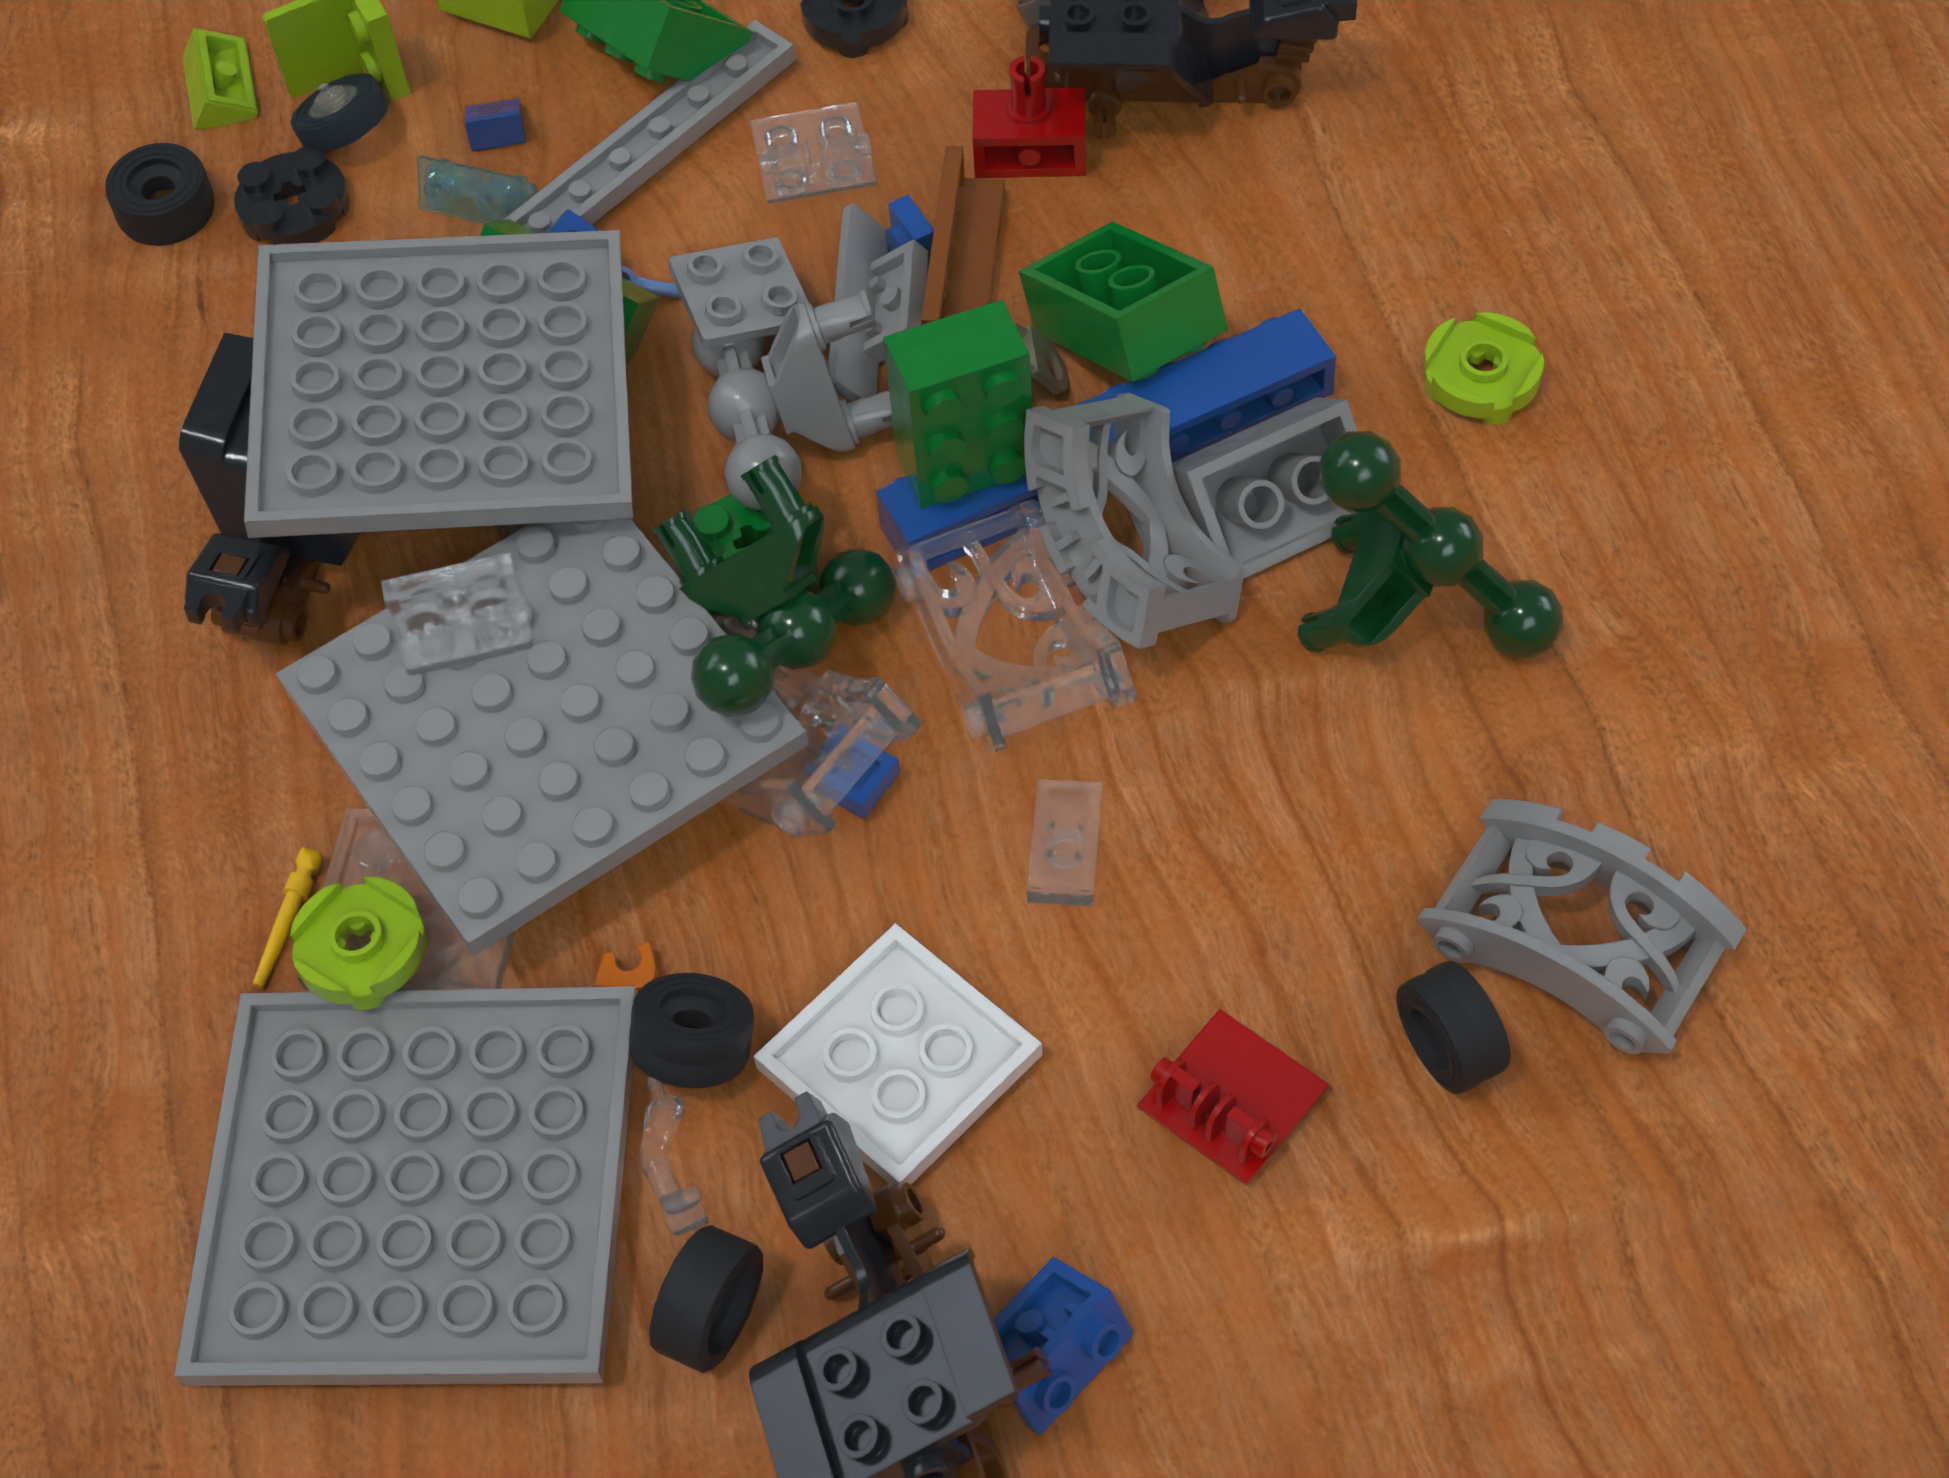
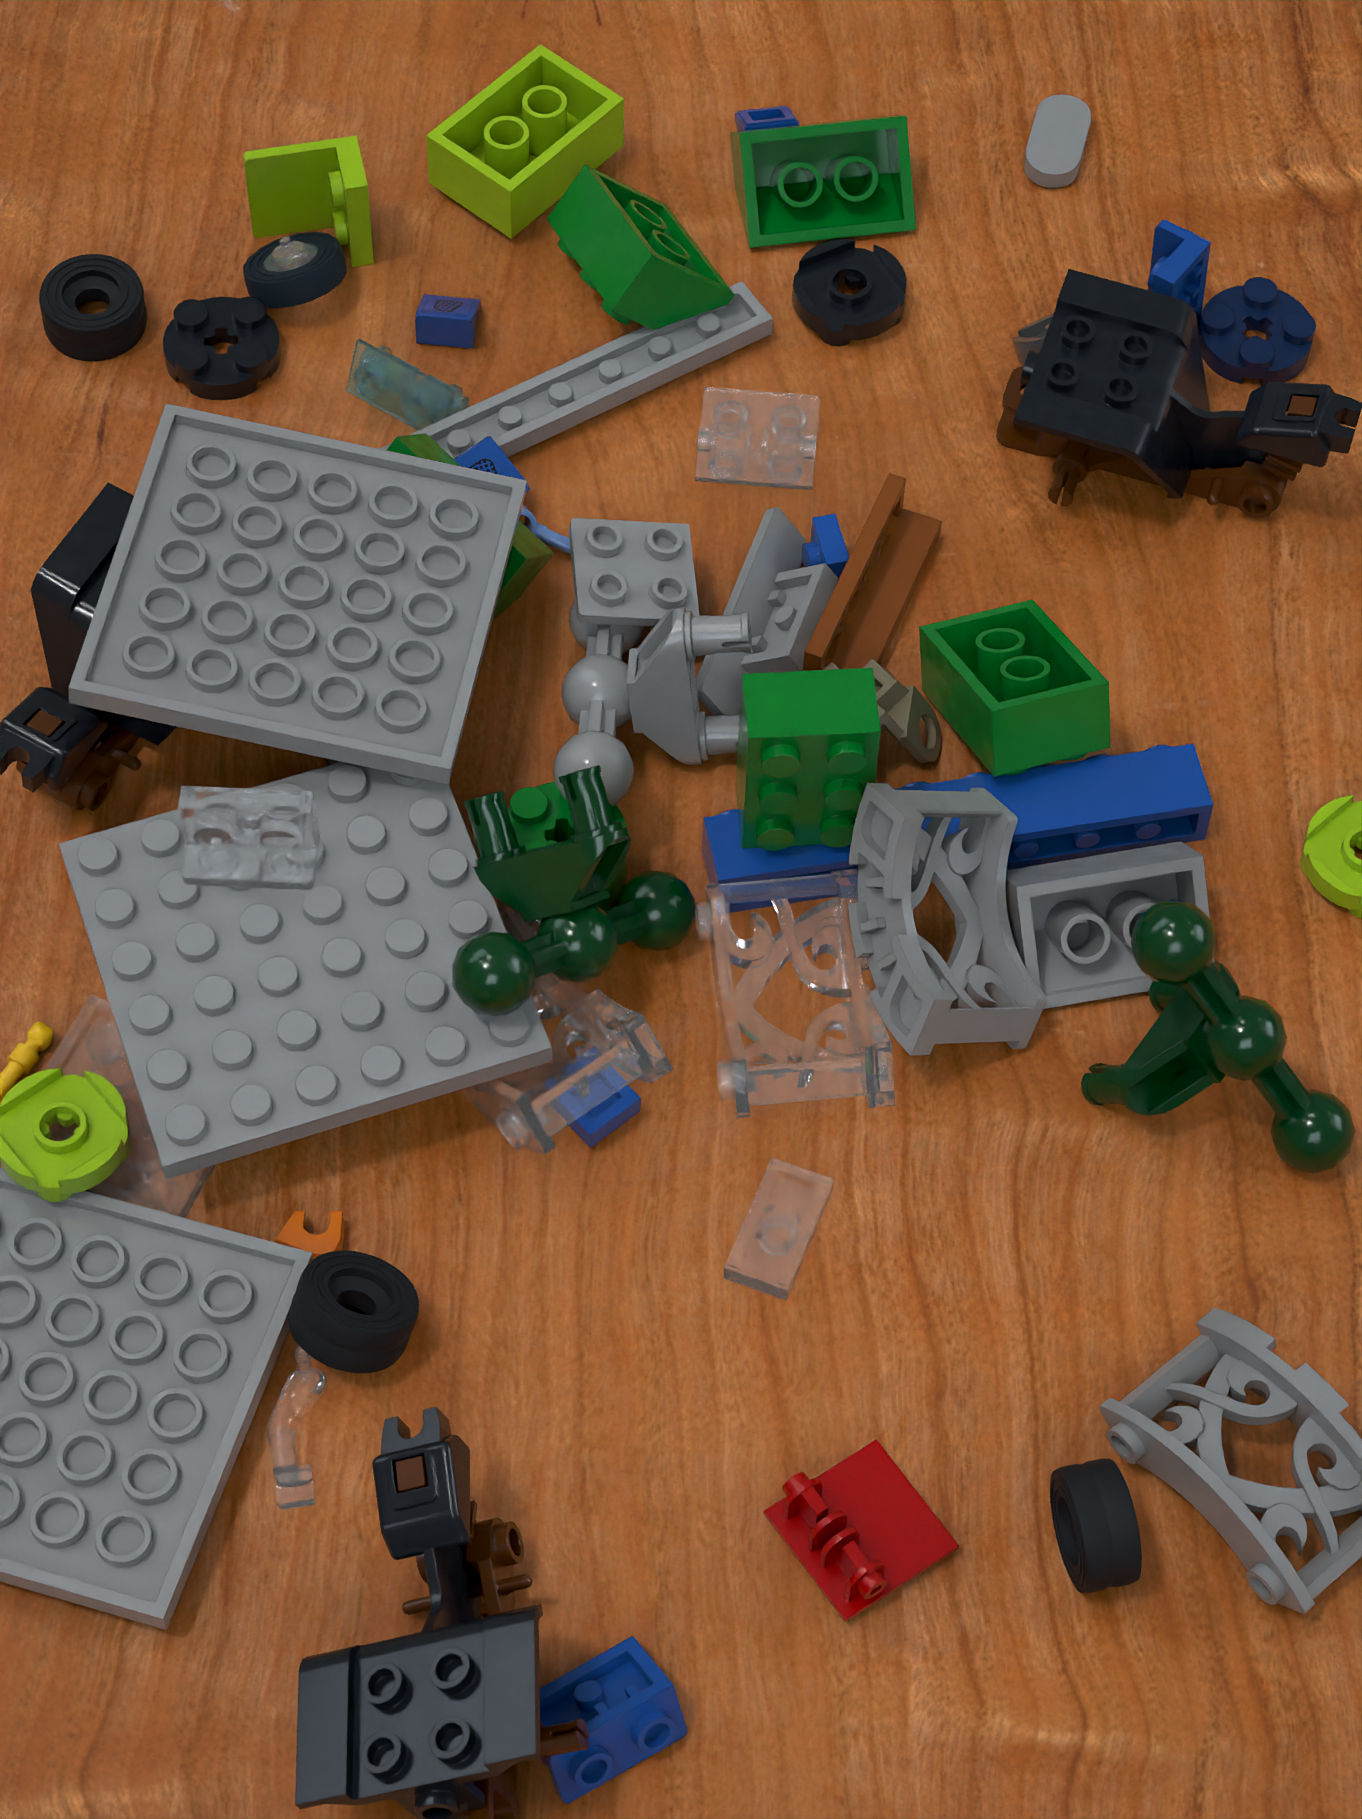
camera: 10 degrees right, 0 degrees up
(218, 79) = (186, 199): lime slope -> none
(706, 1298) = (286, 1578): black tyre -> none
(900, 1055) = (548, 1395): white plate -> none
(1029, 127) = (984, 473): red brick -> none

